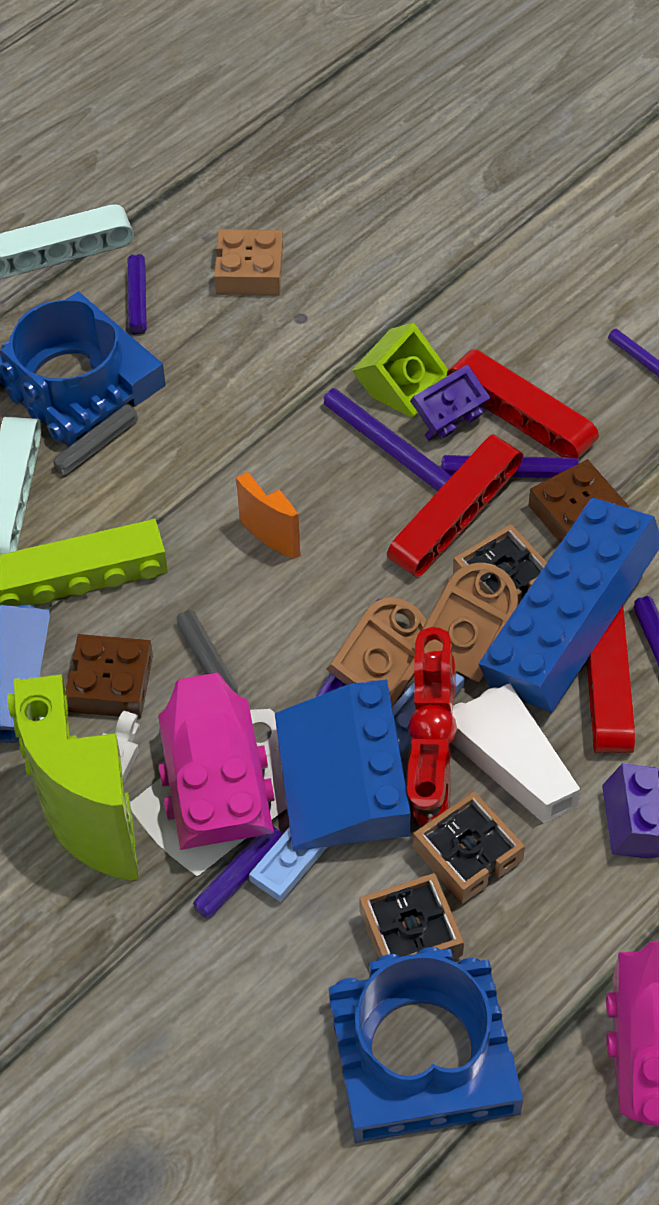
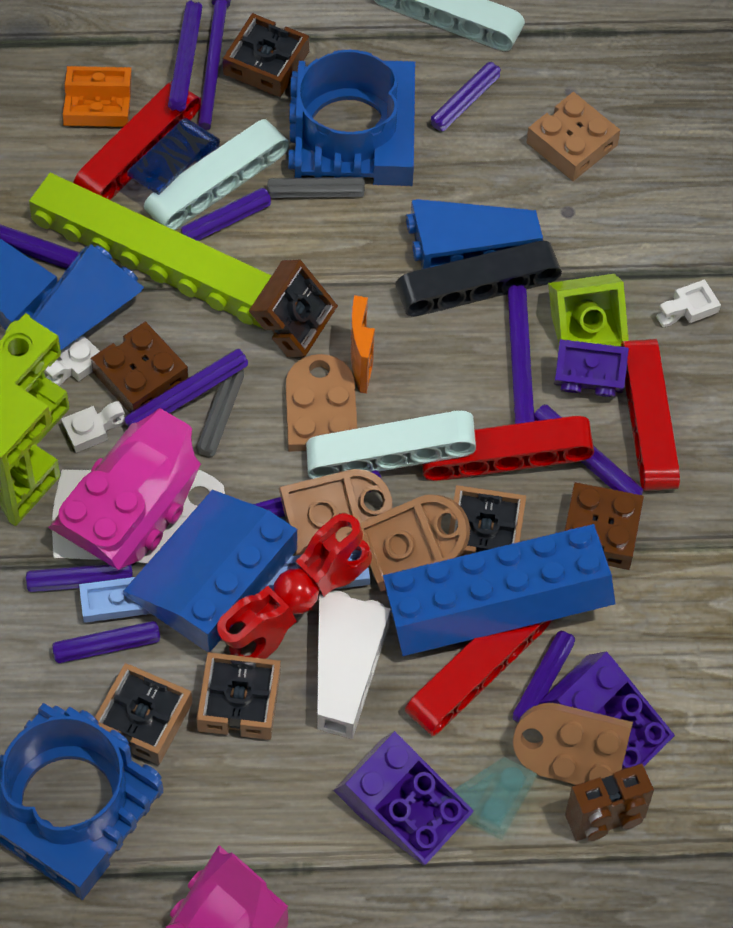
camera: 40 degrees right, 5 degrees up
(48, 508) = (227, 215): none -> dark purple axle
(167, 660) = (192, 386): none -> dark purple axle
(187, 531) = (293, 308): none -> piece
(254, 382) = (462, 231): none -> blue slope
(280, 591) = (319, 404): none -> medium nougat plate
(293, 409) = (477, 278): none -> black beam
(315, 901) = (106, 642): none -> dark purple axle
(374, 569) = (393, 444): none -> light aqua beam
(462, 308) = (691, 301): none -> white plate

